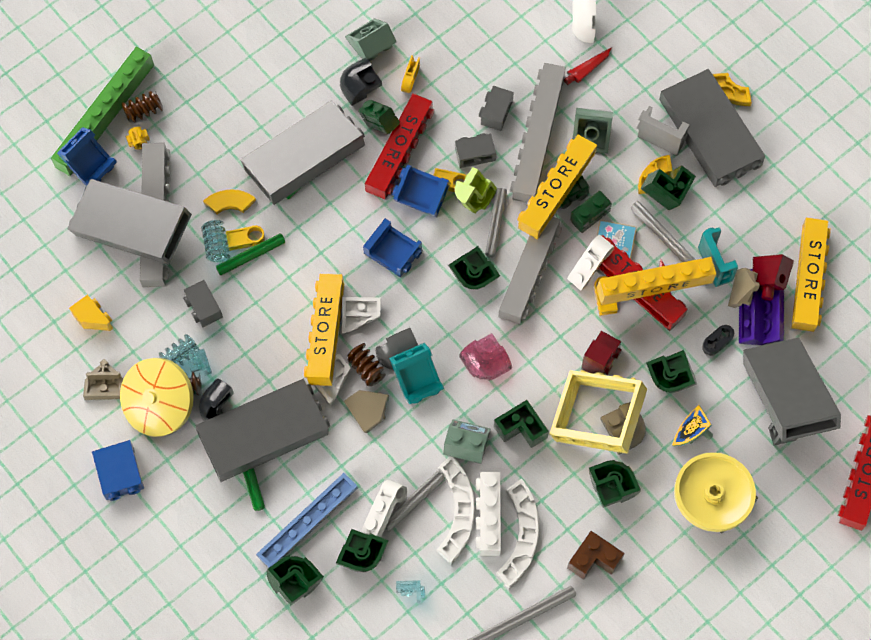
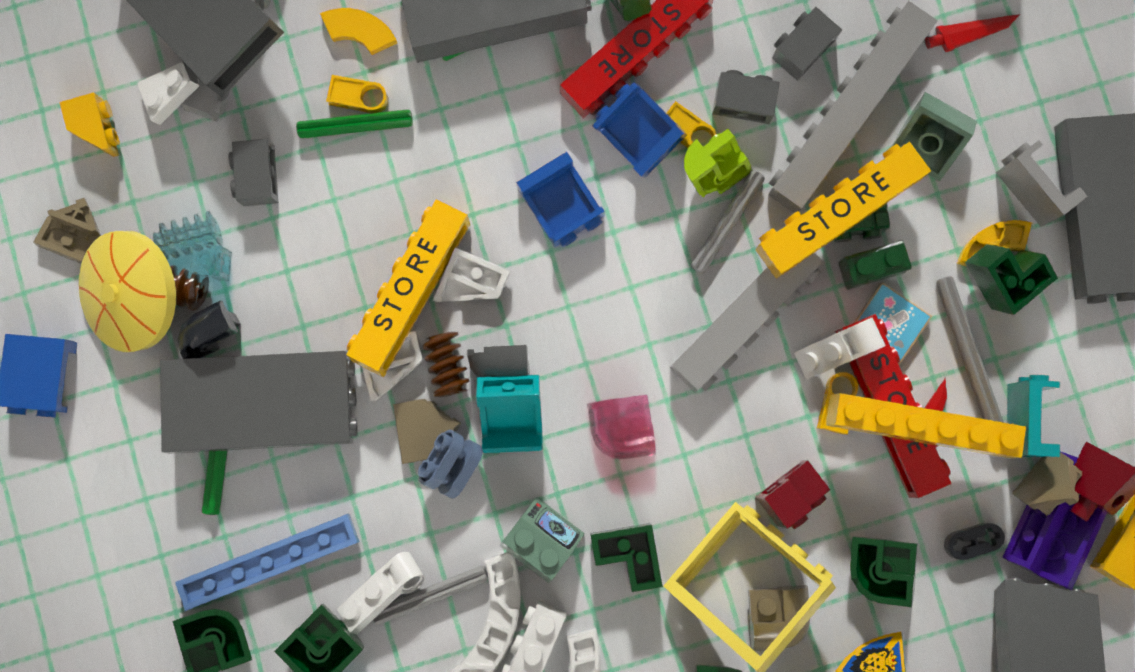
camera: 25 degrees right, 15 degrees up
(132, 276) = (167, 91): none -> white wing
(214, 241) = (308, 83): clear light blue piece -> none
(393, 417) = (450, 464): none -> sand blue brick
(474, 269) = (662, 286): dark green brick -> none

